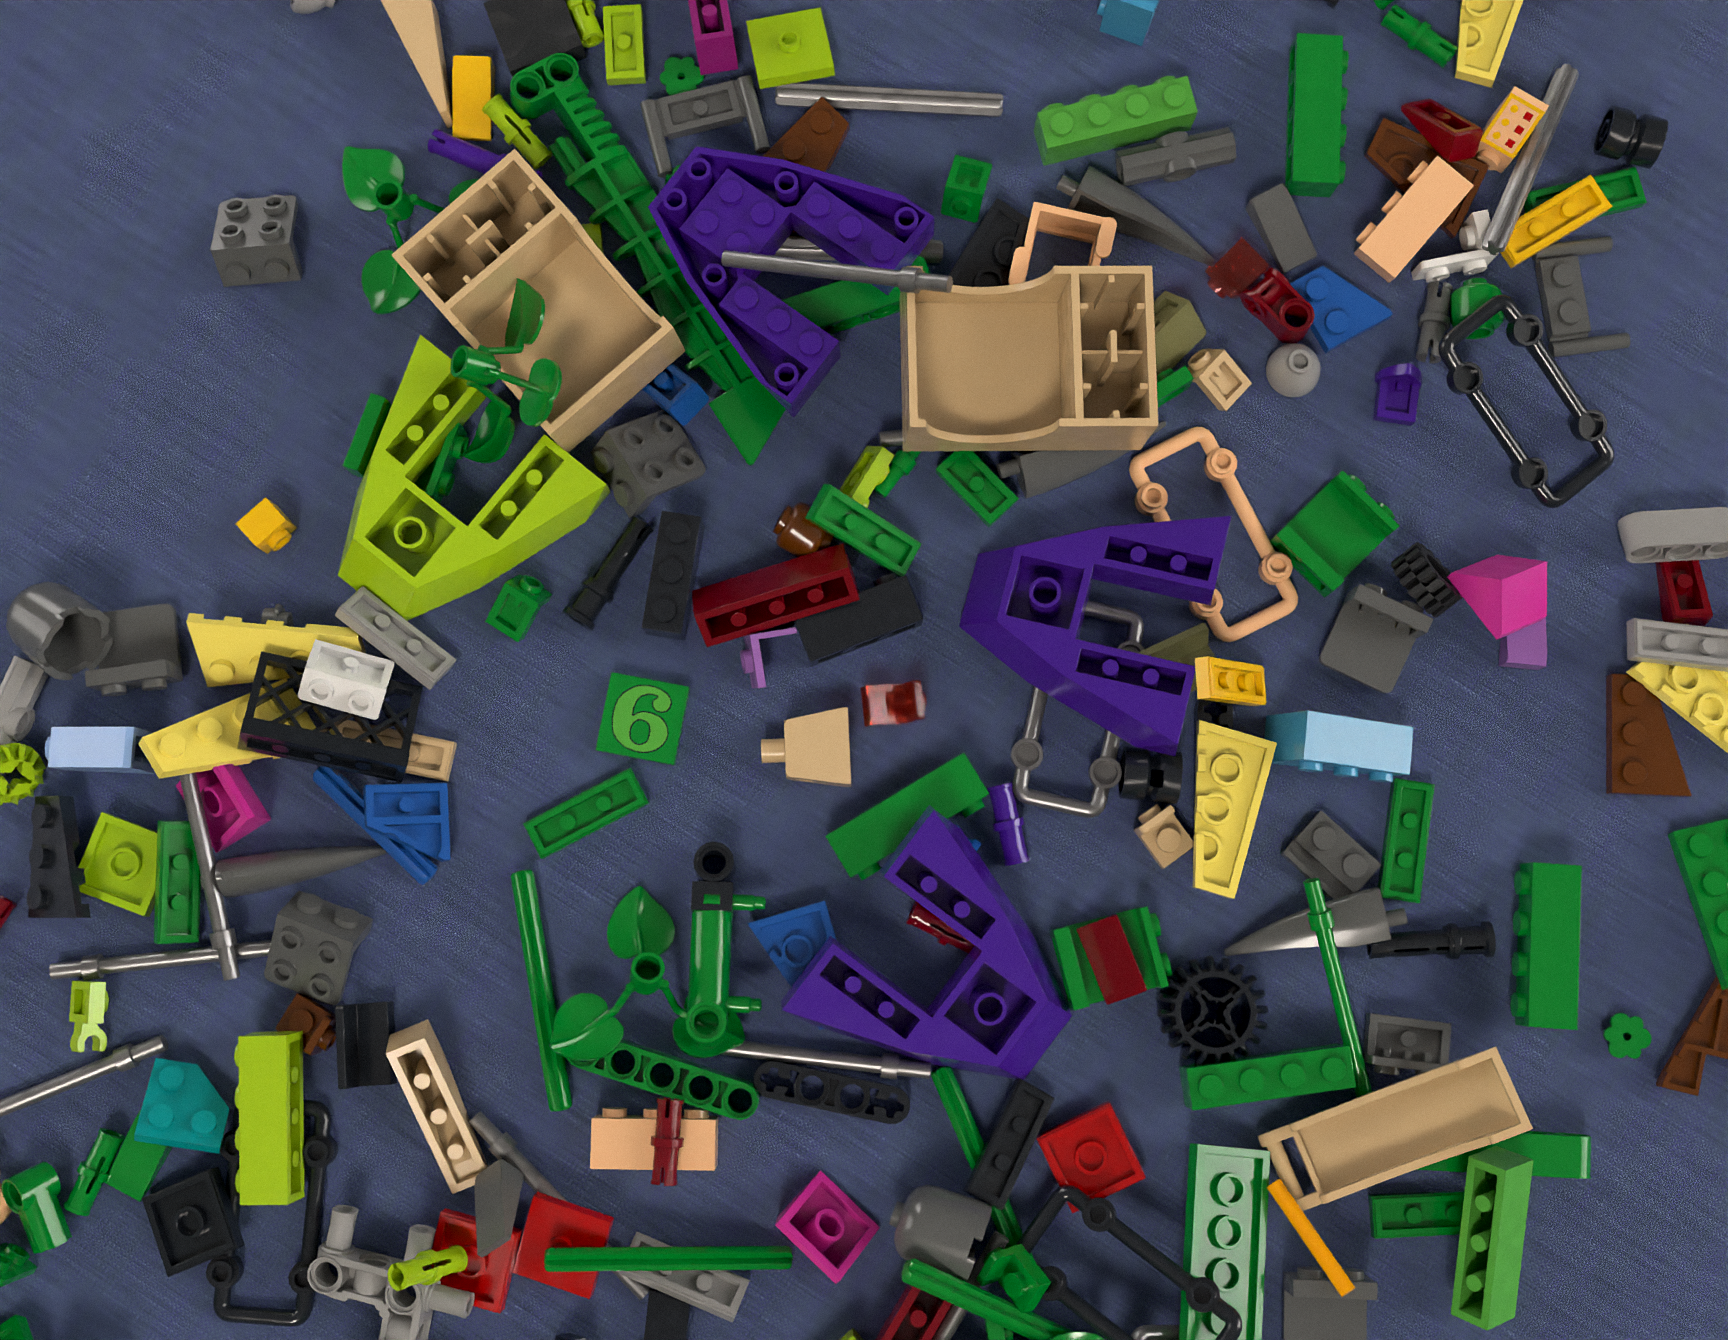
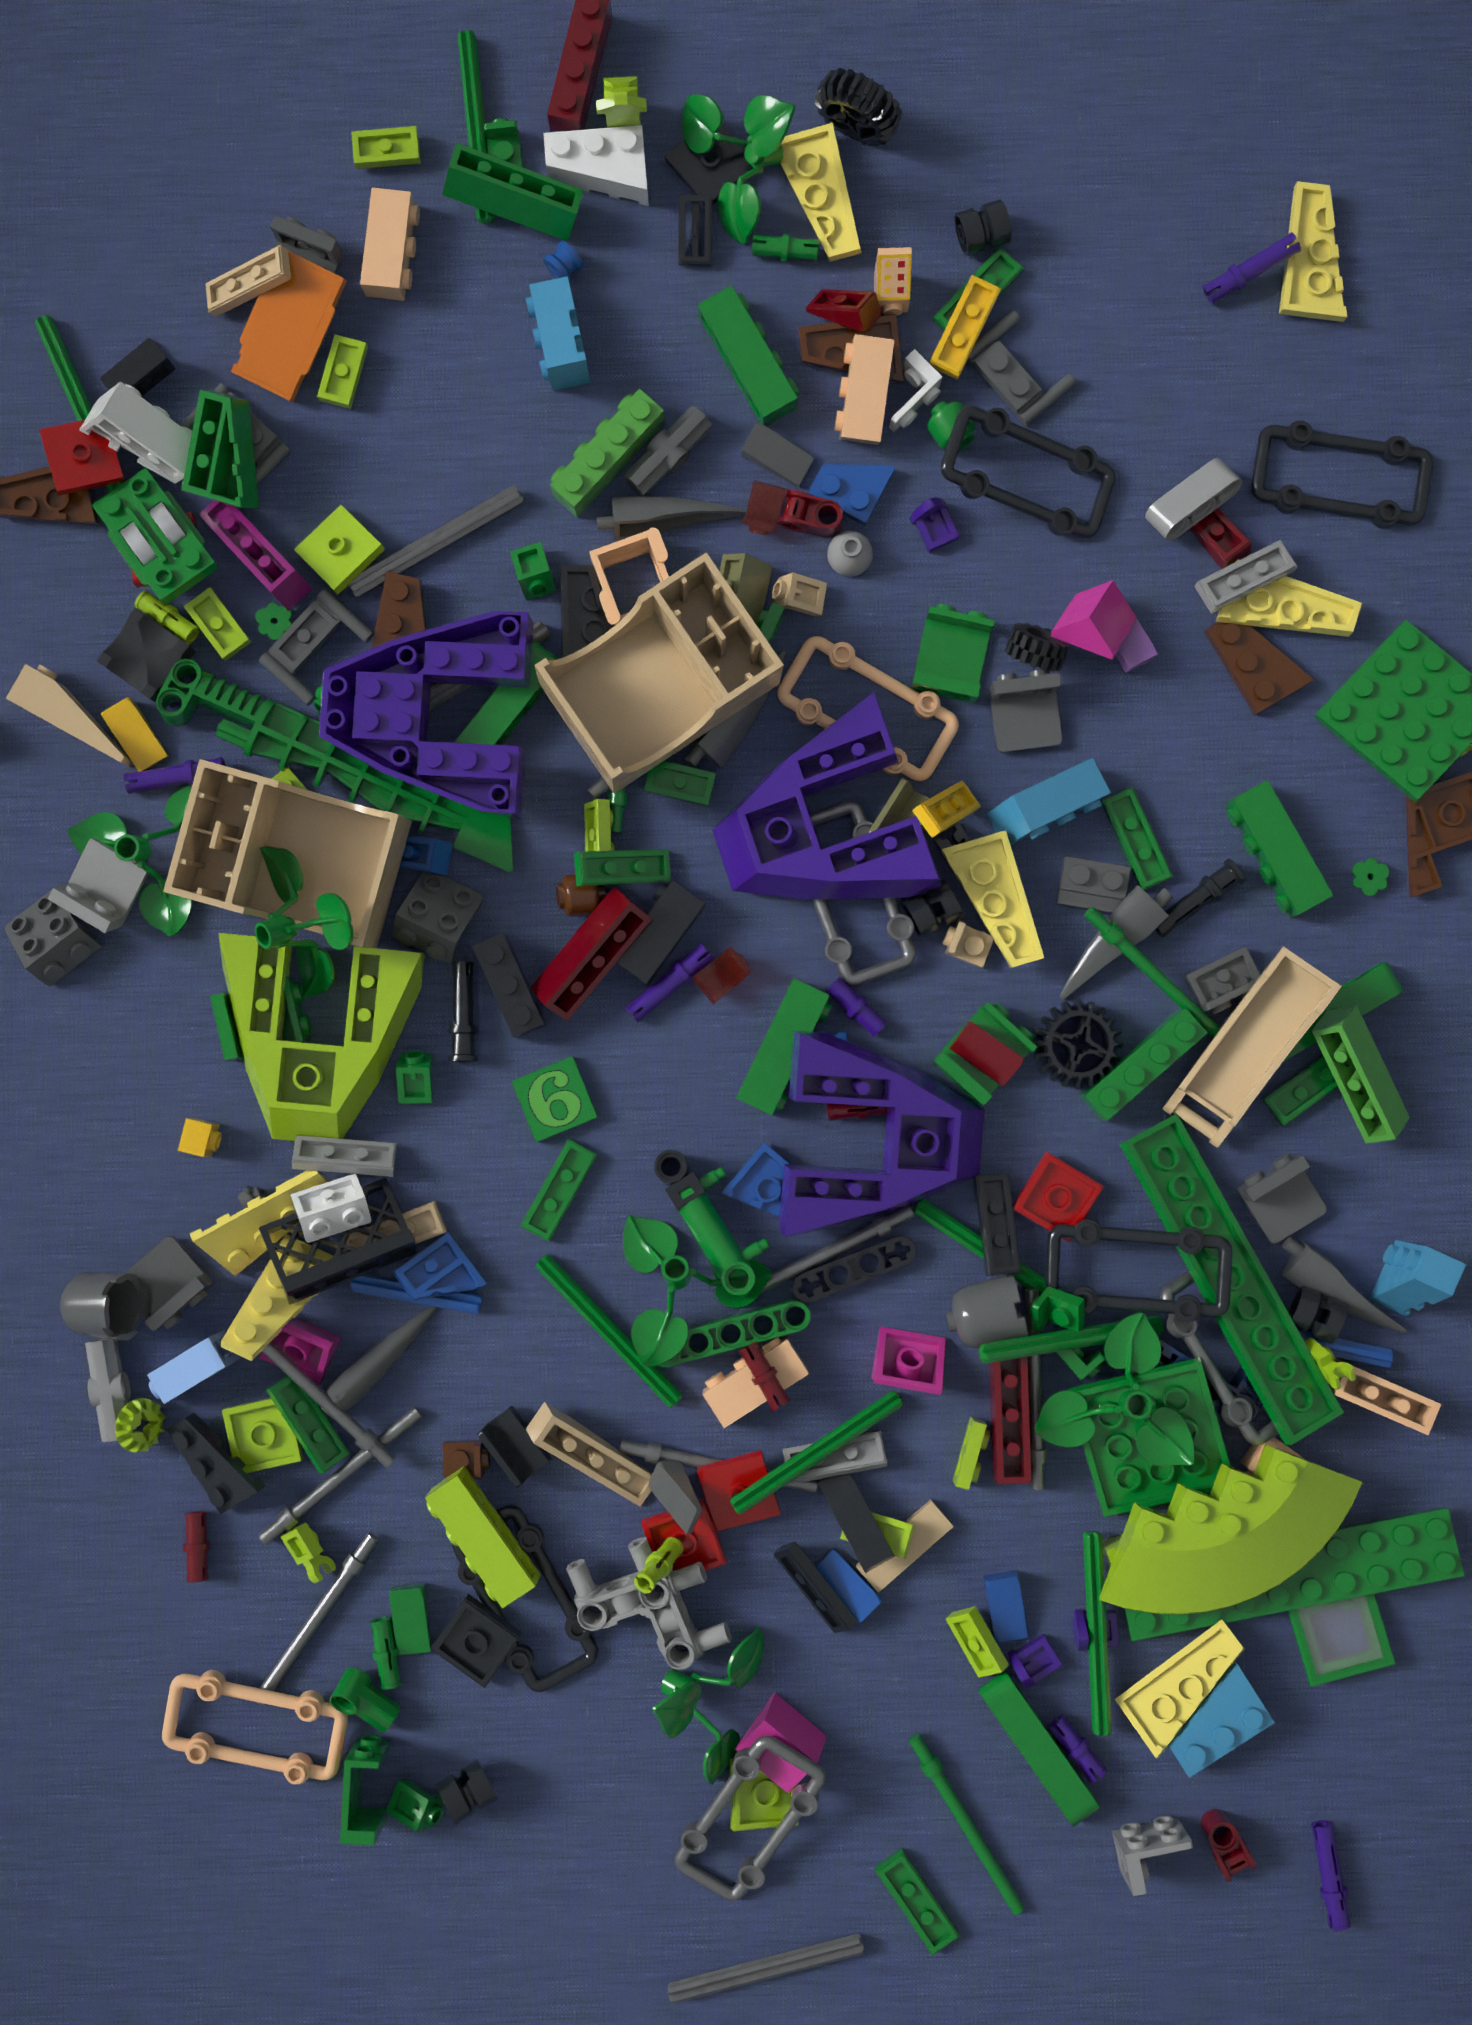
camera: 30 degrees left, 5 degrees up
(182, 1109) = (417, 1571): teal plate -> none
(315, 946) = (433, 1403): dark grey bracket -> none
(337, 222) = (100, 887): none -> light grey bracket
(517, 131) = (162, 733): lime pin -> none
(751, 656) = (602, 1007): medium lavender bracket -> none
(813, 748) = (687, 1042): tan torso -> none
(835, 677) = (670, 982): none -> dark purple pin
(907, 279) = (541, 675): flat silver bar -> none
(1311, 1238) = (1240, 1154): light orange bar -> none
(1434, 321) = (927, 453): dark grey pin -> none
(1529, 161) = (922, 292): flat silver axle -> none

